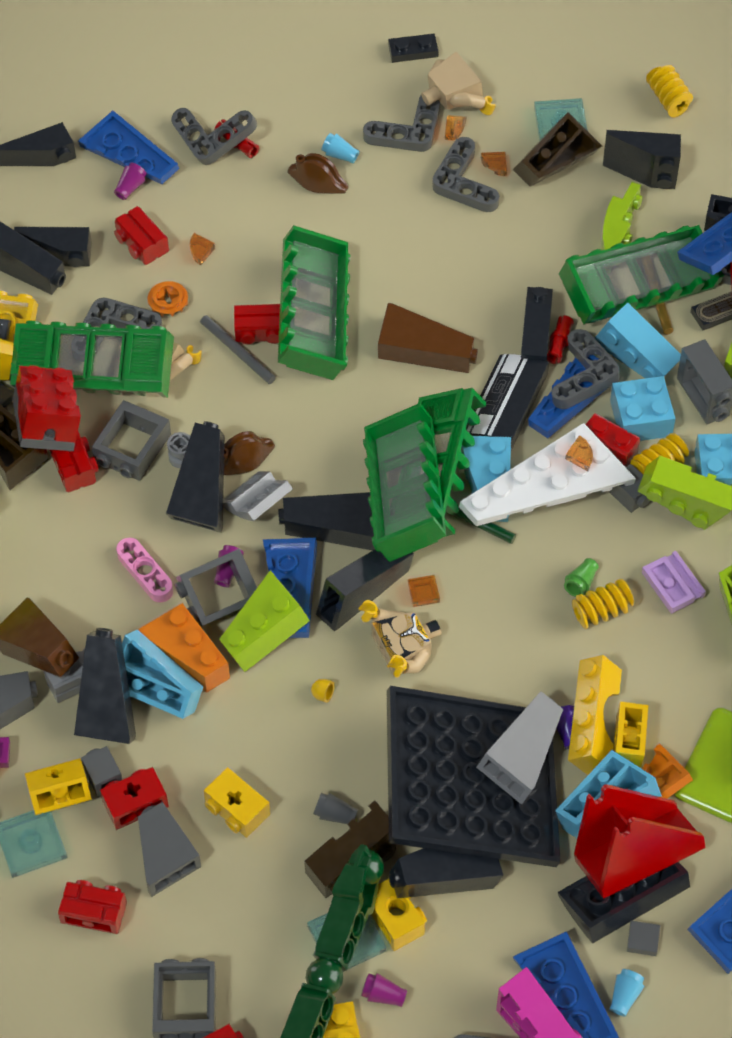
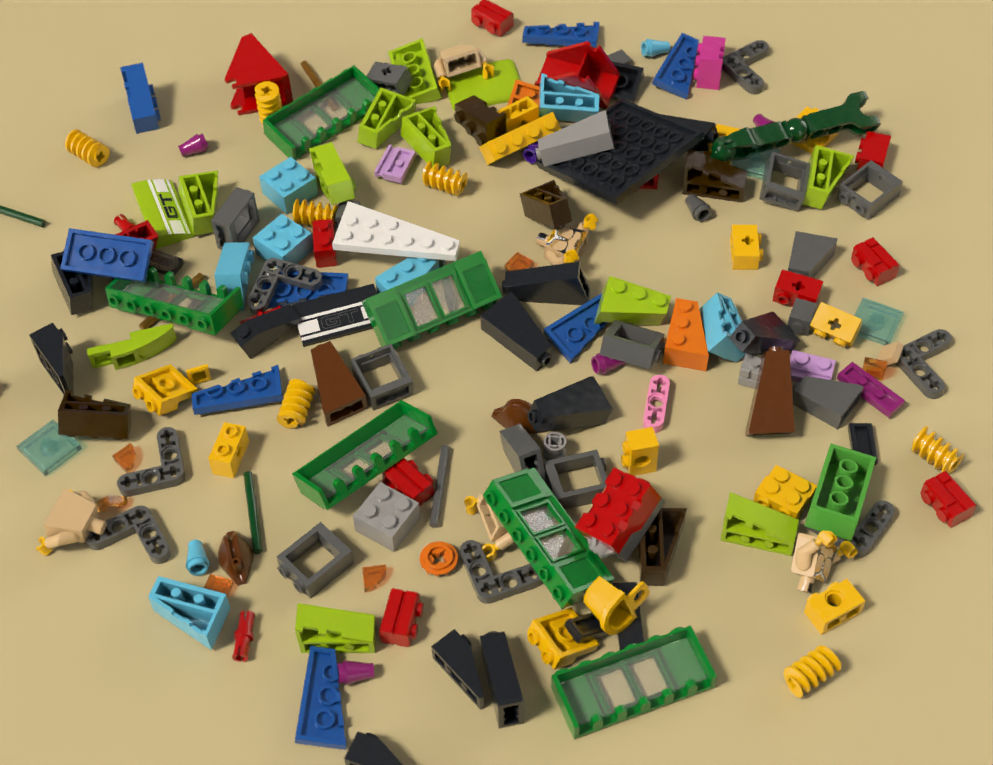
camera: 130 degrees left, 5 degrees down
(43, 729) = (810, 365): none -> lavender plate
(99, 496) = (640, 451): none -> yellow brick
(175, 184) = (335, 629): none -> lime wedge
(188, 407) = (522, 450): none -> dark grey slope
(212, 141) = (266, 642): dark grey beam -> none
(240, 282) = (386, 517): none -> light grey brick
(246, 968) = (825, 174): none -> lime wedge
(256, 495) = (544, 376): light grey slope -> none
(258, 900) = (780, 194): none -> dark grey window
(266, 234) = (311, 586): none -> dark grey window
(291, 112) = (190, 608): none -> medium azure wedge
(297, 145) = (219, 584): none -> clear orange tile
(322, 690) = (634, 261): yellow hinge -> none
(349, 212) = (252, 512): none -> dark green bar
(395, 361) = (389, 392): none -> dark grey window
(404, 483) = (469, 290): window -> none
(413, 48) = (41, 592): black plate -> none
(425, 224) = (228, 450): none -> yellow brick
(428, 299) = (295, 403): none -> yellow piece
(460, 651) = (546, 205): none -> dark brown wedge
(484, 274) = (256, 390): none -> blue wing
(541, 257) = (198, 374): none -> yellow slope
(543, 219) = (162, 389): none -> yellow plate
(580, 454) = (361, 223): clear orange tile -> none
(581, 578) = (434, 201): bright green cone -> none
(669, 698) = (480, 120): none -> dark brown wedge
(679, 630) = (426, 136): none -> lime wedge

